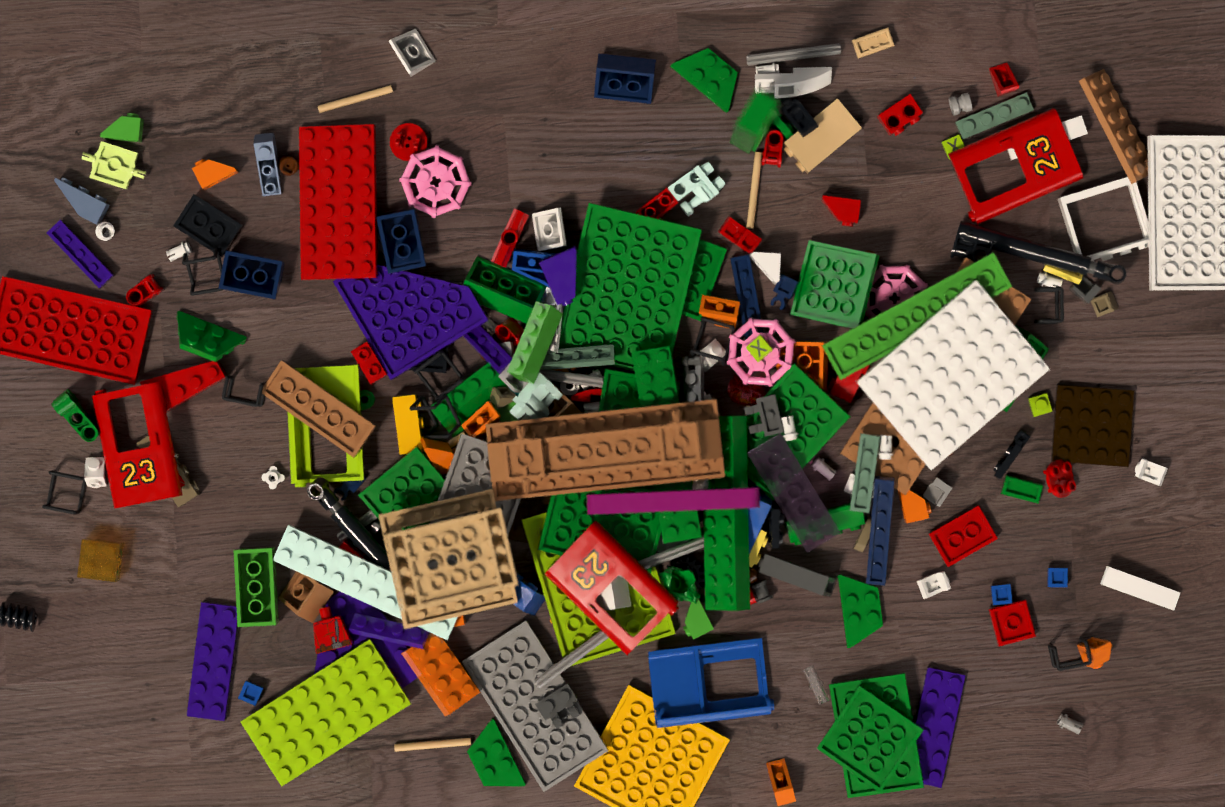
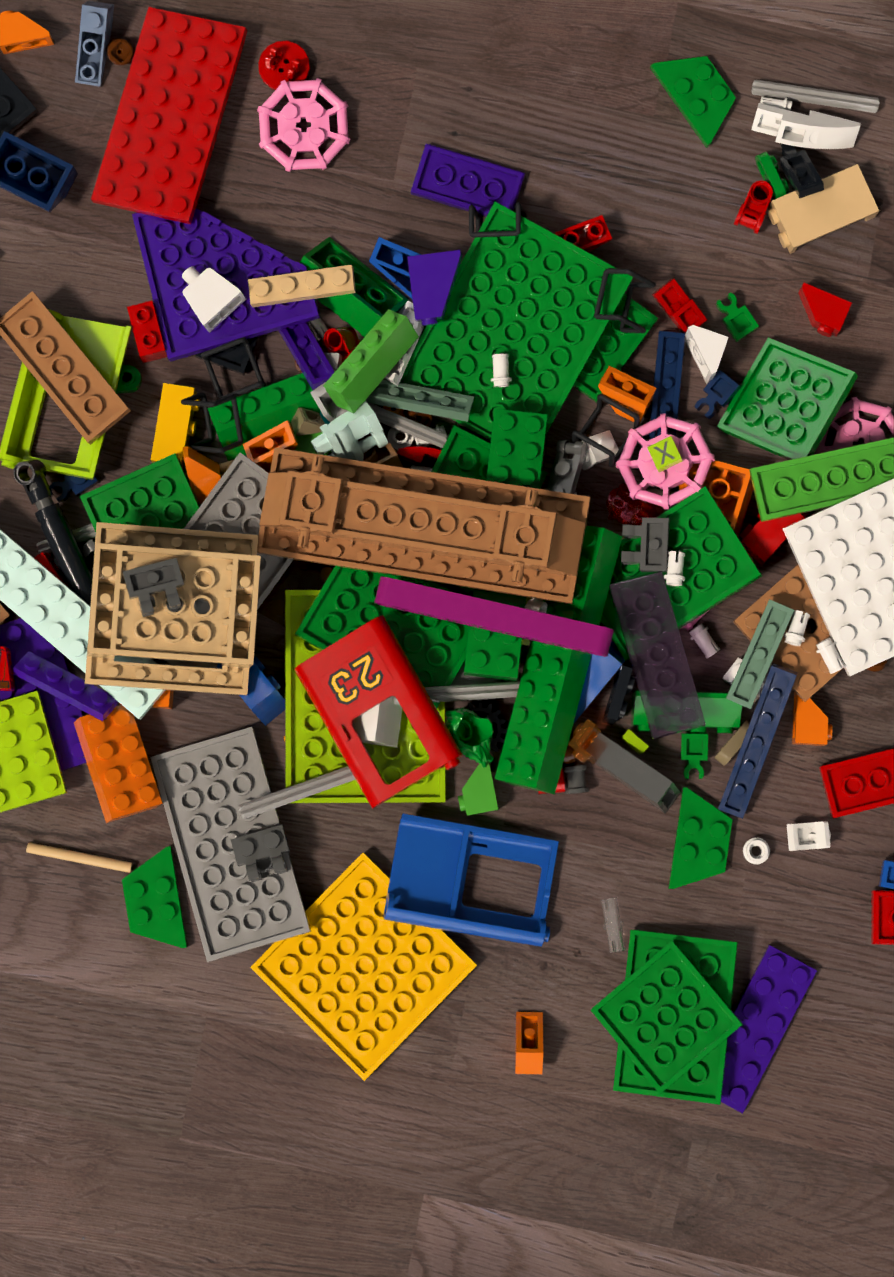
camera: 25 degrees right, 5 degrees down
(401, 241) = (236, 184): dark blue slope -> none
(407, 328) = (211, 296): none -> white torso
(432, 548) = (154, 579): none -> dark grey plate
(470, 302) = (302, 286): none -> tan plate
(505, 250) = (389, 211): red piece -> none
(549, 229) = (433, 226): white slope -> none
(563, 188) = (465, 181): none -> dark purple tile
(574, 211) = (473, 212): none -> black piece
(624, 78) = (587, 64): dark blue slope -> none
(627, 321) = (501, 370): none -> white pin
(698, 183) = (646, 224): light aqua hips -> none
(703, 230) = (646, 283): none -> black piece
(754, 122) = (745, 139): green brick -> none
(754, 190) = (715, 254): tan bar -> none
(754, 555) = (593, 712): light yellow plate -> none
(759, 560) = (583, 737): none -> clear orange bracket
(784, 234) = (738, 321): none -> green plate
(795, 554) = (634, 742): none -> lime tile
(838, 547) = (694, 748): none -> green plate
(905, 609) = (762, 844): none -> white plate
(913, 459) = (830, 655): none -> white pin
(937, 491) = (846, 714): light grey panel -> none

